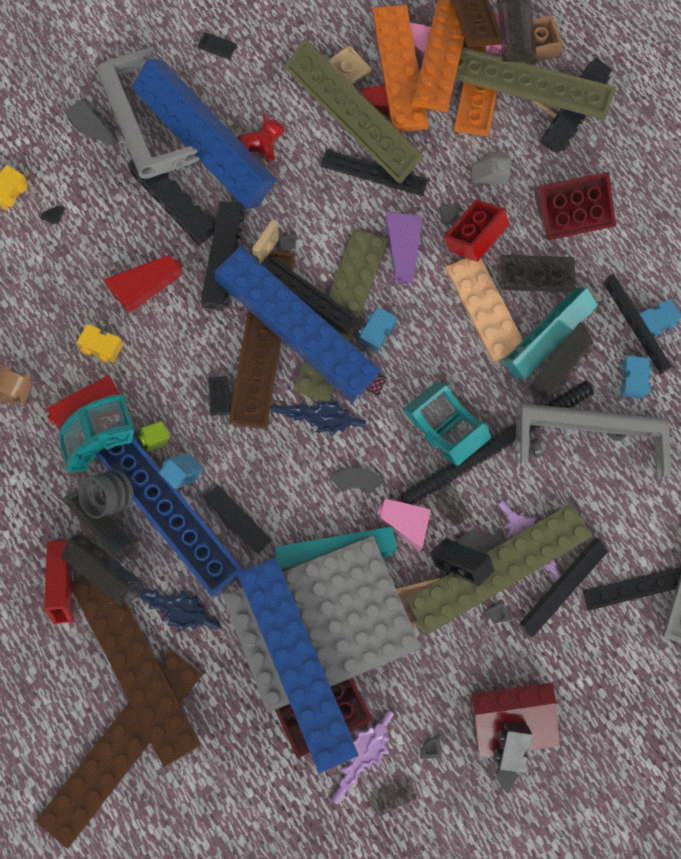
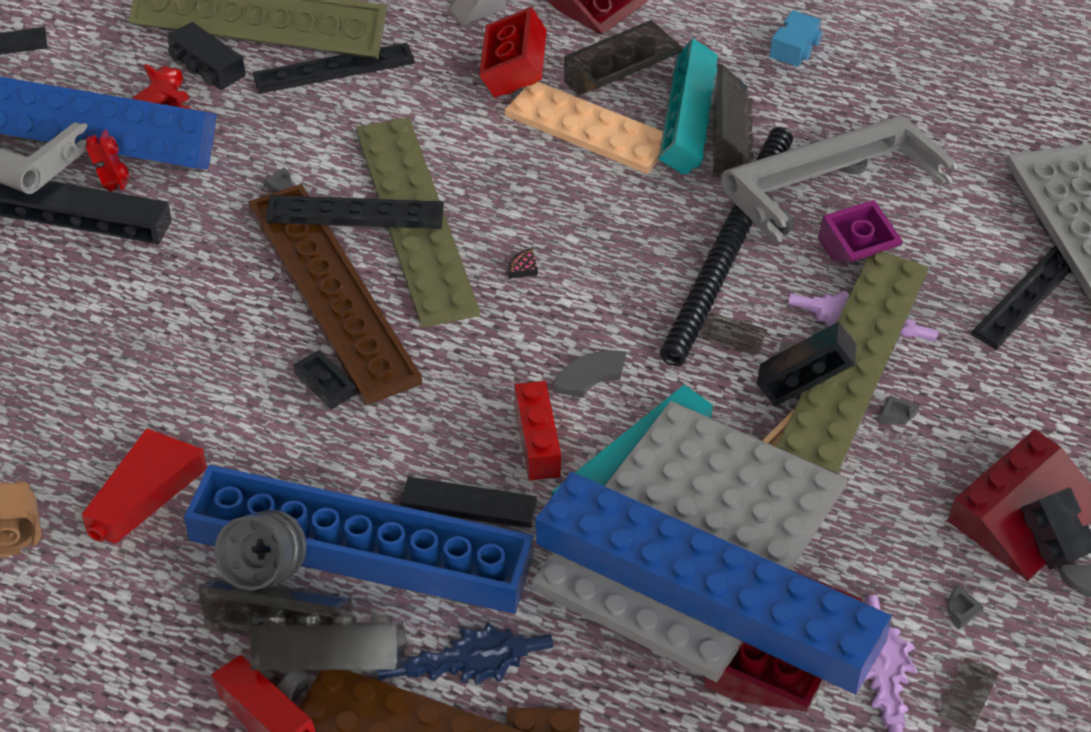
camera: 30 degrees left, 25 degrees down
(92, 428) = (173, 492): teal window -> none
(103, 346) = (102, 409): yellow brick -> none
(143, 282) = (111, 313): red slope -> none
(153, 436) = (272, 462): lime brick -> none
(181, 470) = (345, 475): dark azure brick -> none
(202, 182) = (106, 150): none -> red hinge
(223, 246) = (204, 234): black brick -> none
(266, 242) = (258, 178): tan plate -> none
(297, 324) = (369, 240): blue brick -> none
(299, 501) = (537, 430): none -> red brick
(306, 122) = (206, 56): none -> black brick
(326, 416) = (484, 329): dark blue piece -> none
(378, 325) = (477, 206): dark azure brick -> none
(403, 241) = (433, 111): medium lavender slope -> none
(407, 520) = (699, 368): bright pink slope -> none
(447, 423) = (651, 250): teal window -> none
(448, 213) = (461, 62): dark grey tile -> none
(563, 587) = (947, 340): black tile -> none
(569, 491) = (857, 232): none -> magenta slope
(636, 377) = (824, 99): dark azure brick -> none
(637, 324) = (778, 54): black tile -> none

